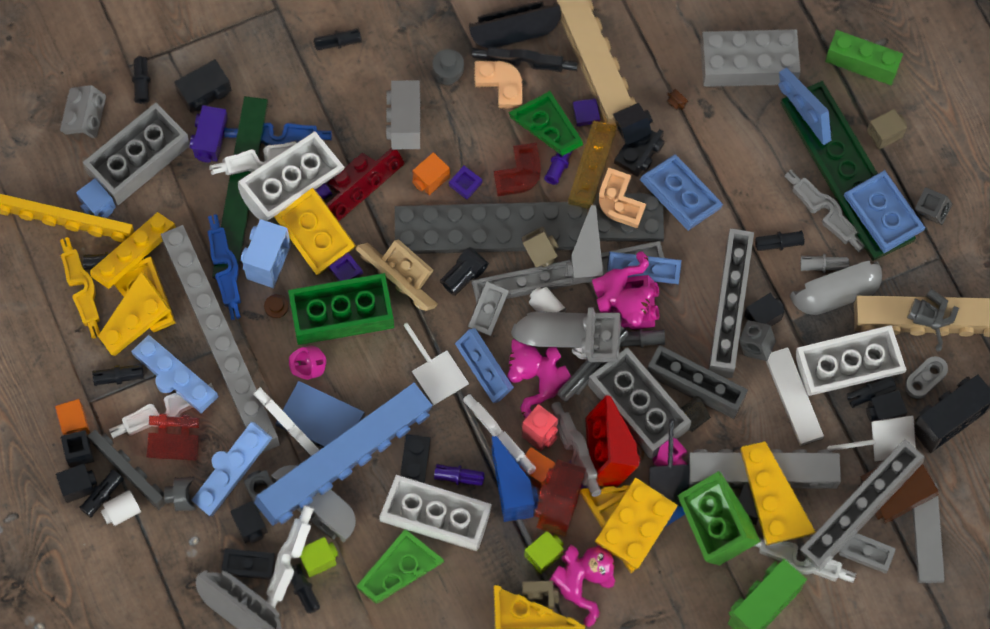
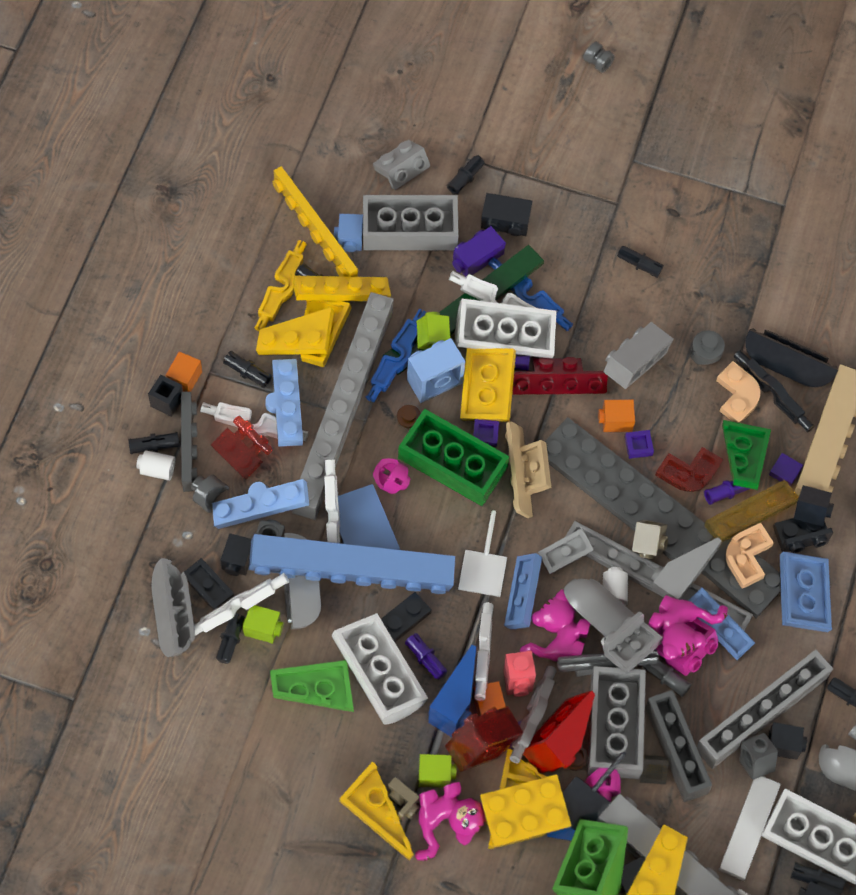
camera: 40 degrees right, 5 degrees down
(76, 482) = (142, 419): black brick -> none
(236, 224) = (432, 329): none -> lime brick
(468, 266) = (581, 508): black piece -> none

